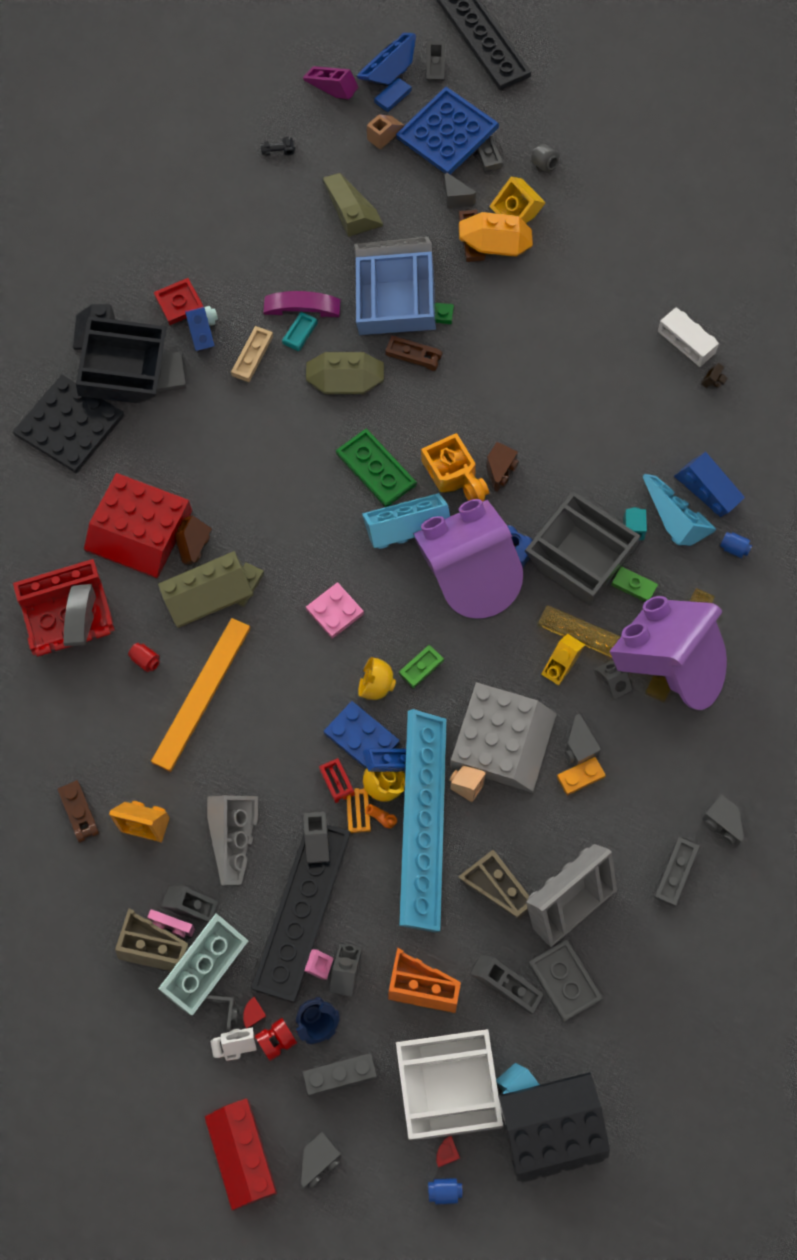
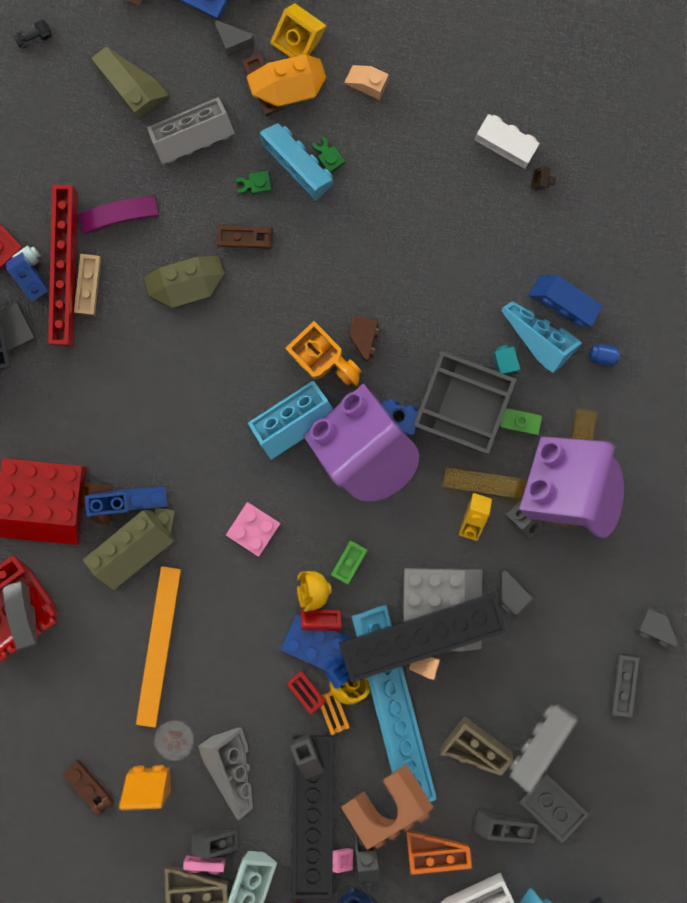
camera: 20 degrees left, 20 degrees up
(144, 657) = (94, 629): red brick -> none
(184, 790) = (174, 740): none -> clear tile
(217, 543) = (125, 500): none -> blue slope
(235, 331) = (63, 266): none -> red brick
(299, 331) = (125, 244): teal tile -> none
(374, 712) = (321, 620): none -> red tile
(376, 468) = (246, 371): green tile -> none
(384, 818) = (356, 712): orange arm -> none
(395, 293) = (207, 178): medium blue slope -> none
(411, 911) = (411, 805): none -> nougat arch
(474, 746) = (422, 637): none -> black plate
(482, 301) = (296, 160): none -> medium azure slope
(514, 309) = (329, 157): none -> green plate
(571, 256) = (367, 80): none -> light nougat slope
(581, 776) = (519, 623): light orange plate -> none

